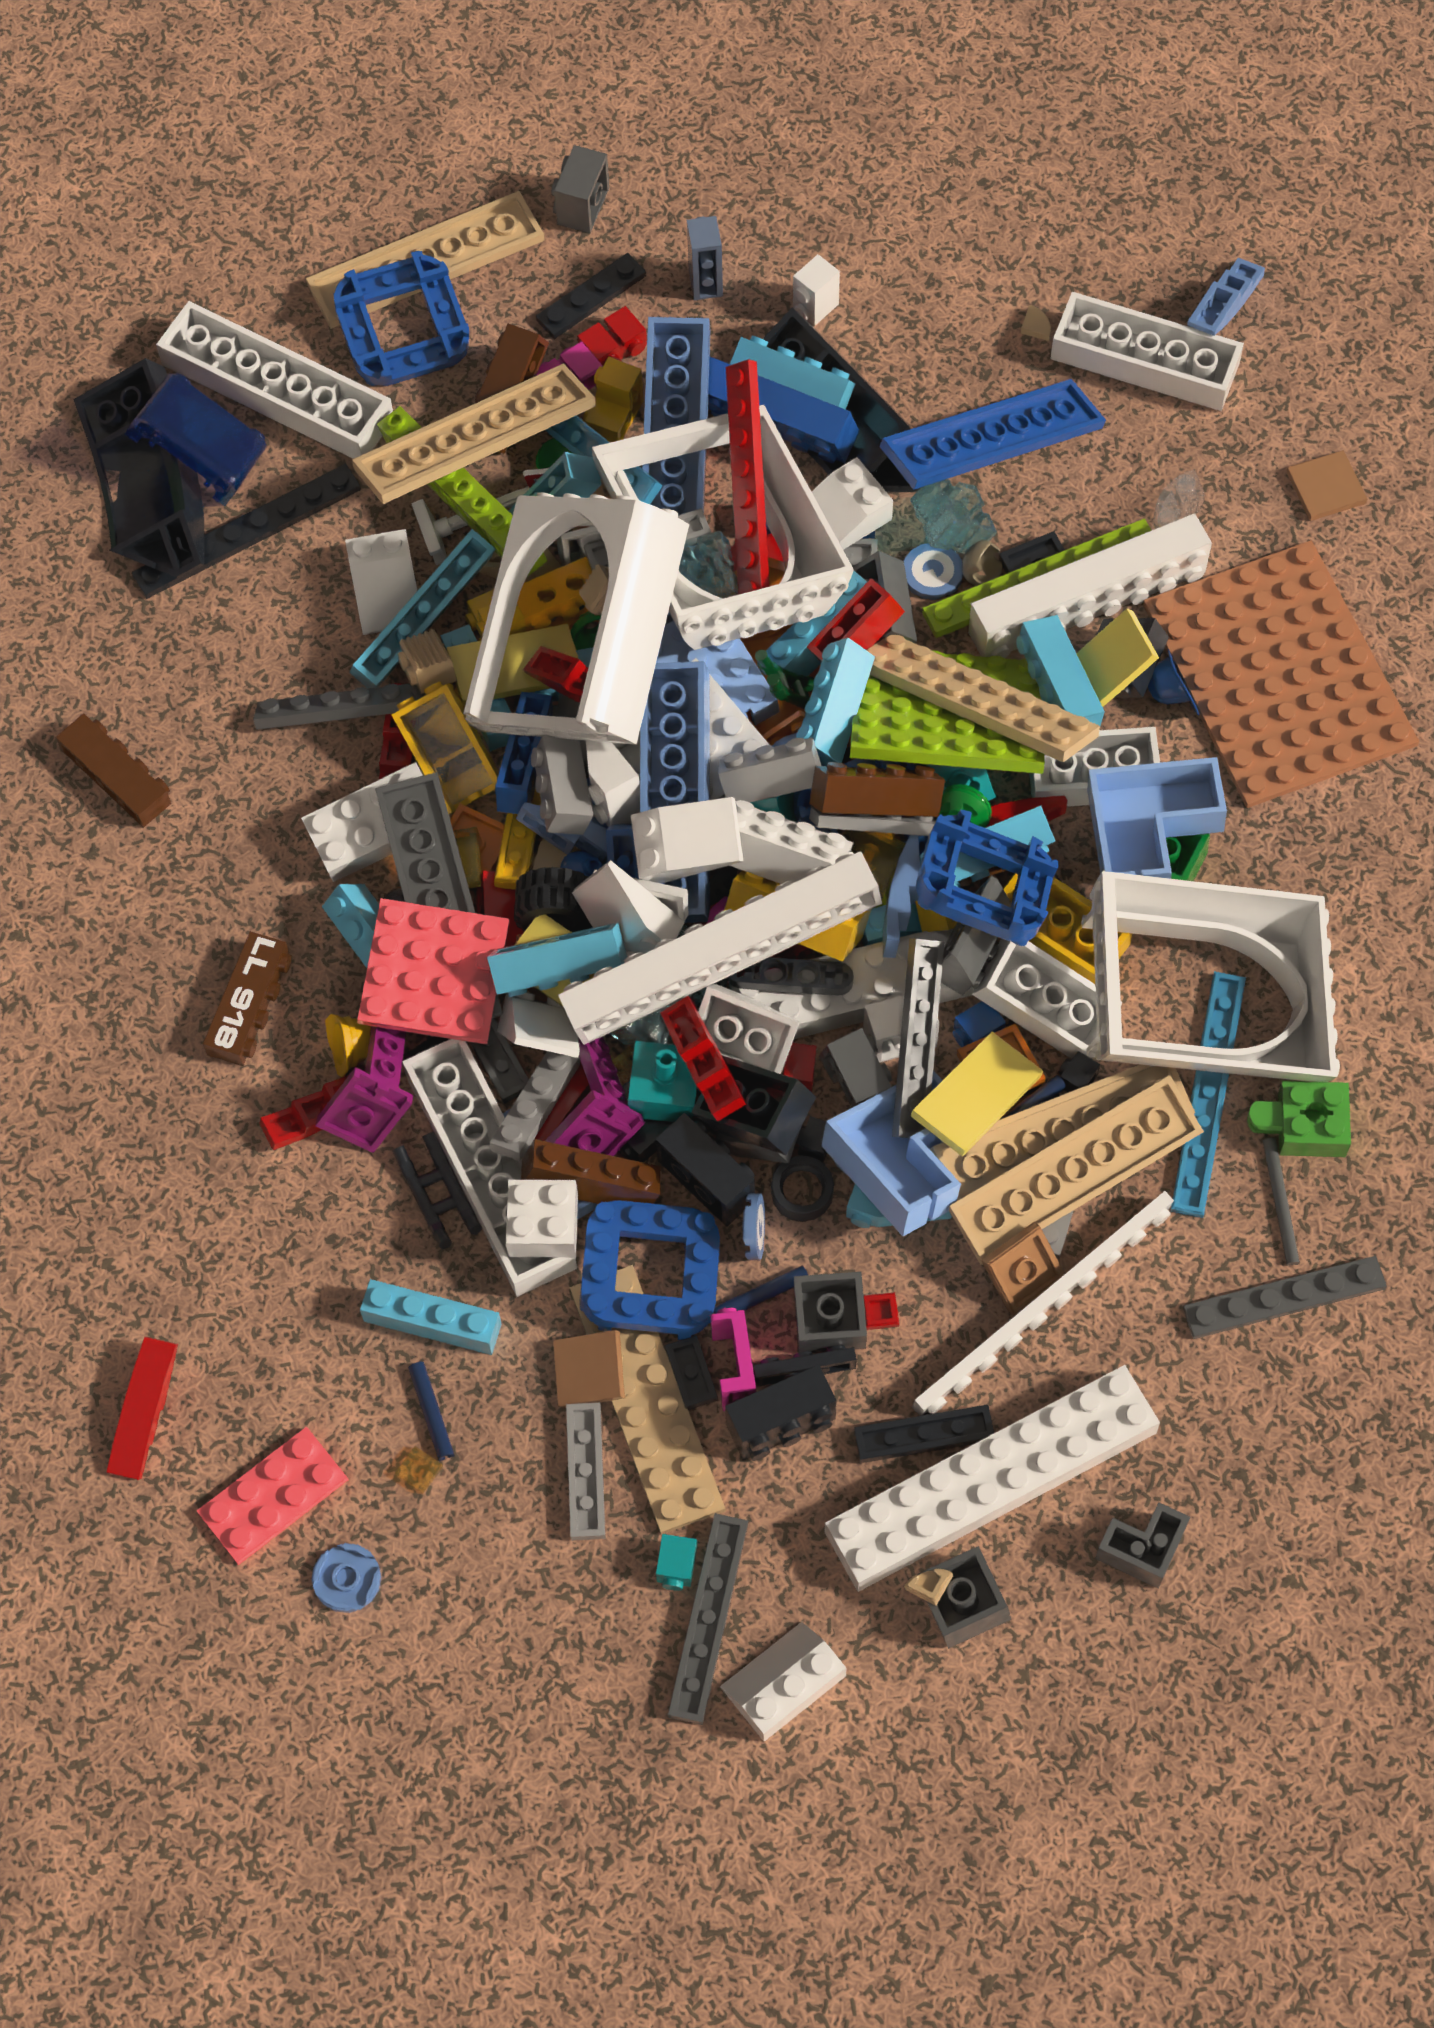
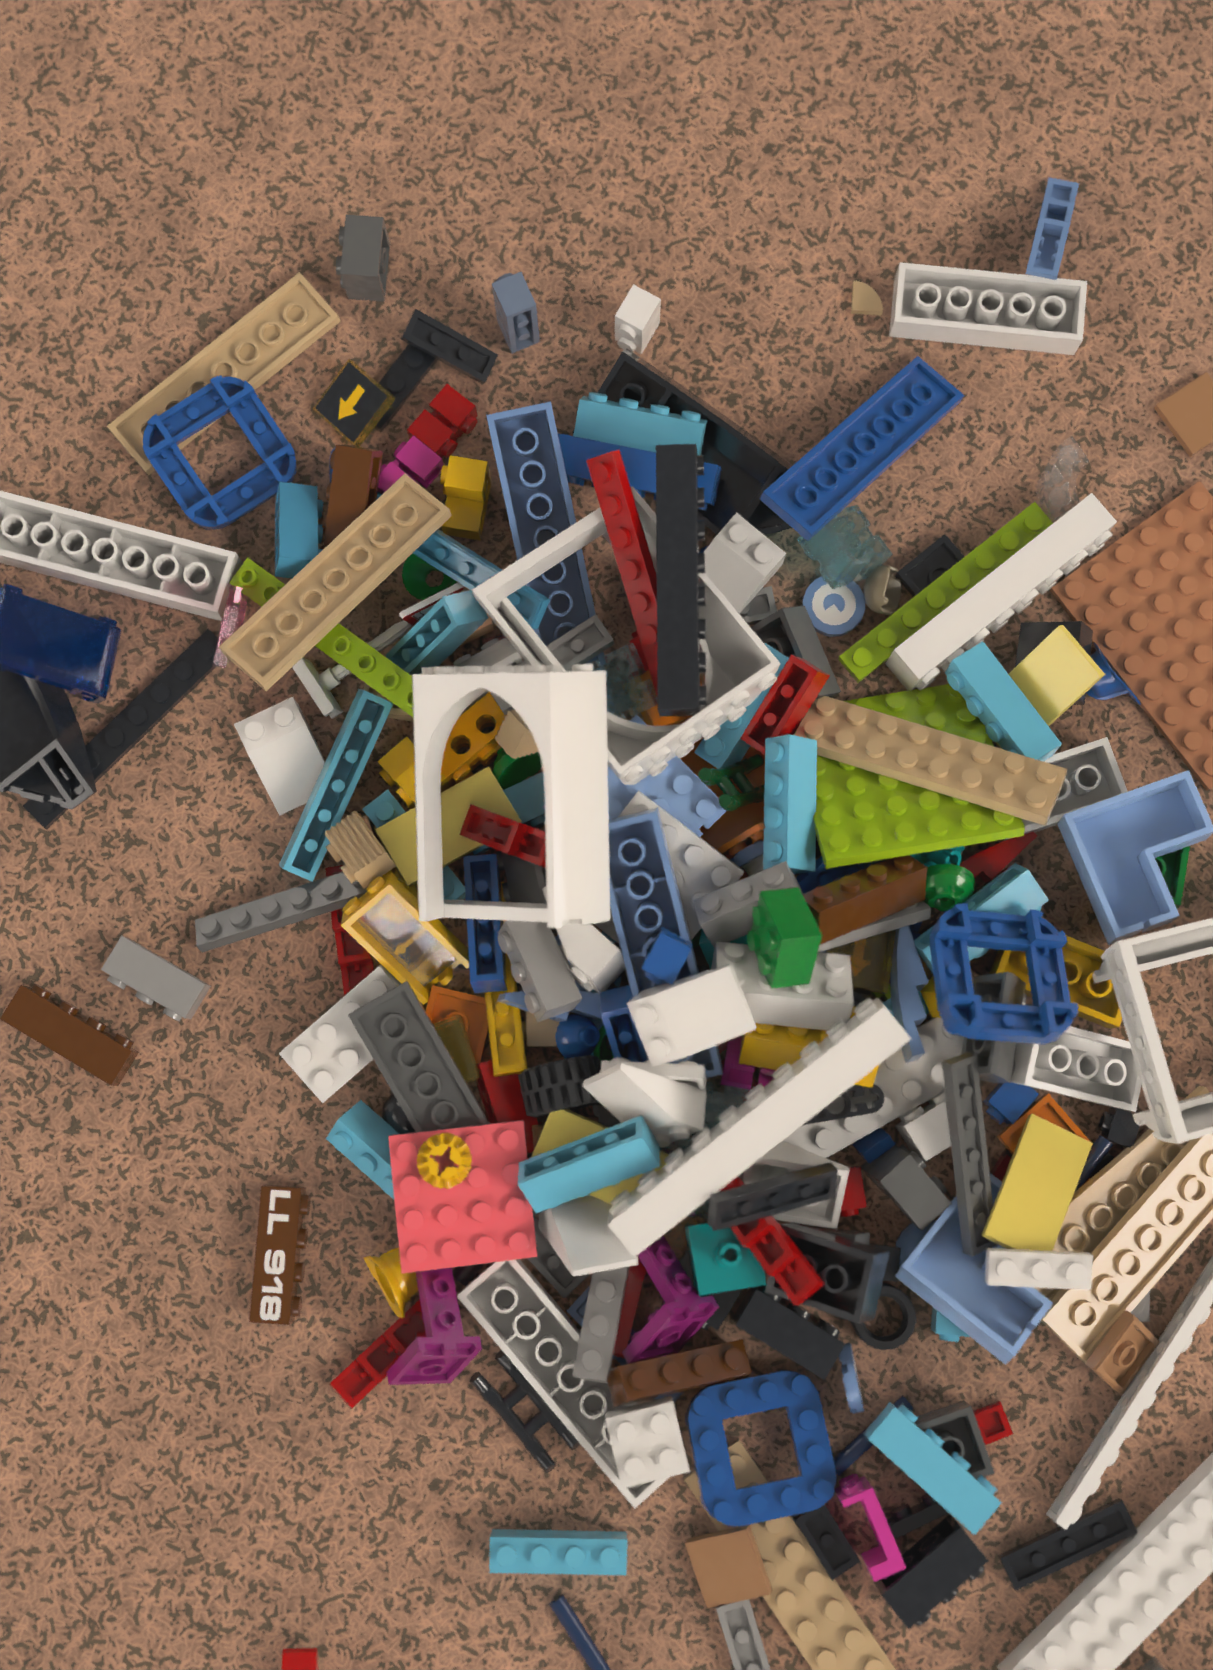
camera: 15 degrees left, 15 degrees up
(206, 741) = (155, 979): none -> light grey brick
(372, 439) = (232, 618): none -> clear pink plate
(426, 941) = (459, 1154): none -> yellow gear
(453, 388) = (296, 527): none -> dark azure brick
(536, 304) = (353, 403): none -> black tile
(636, 277) = (449, 346): none -> black plate
(678, 786) = (666, 957): none -> blue brick
(718, 1013) = (772, 1196): none -> black plate
(780, 480) = (678, 580): none -> black brick
(790, 793) = (784, 937): none -> green brick
(806, 1307) = (932, 1468): none -> medium azure brick
(835, 1034) = (873, 1145): none -> blue tile
(954, 1149) = (1038, 1268): none -> white plate

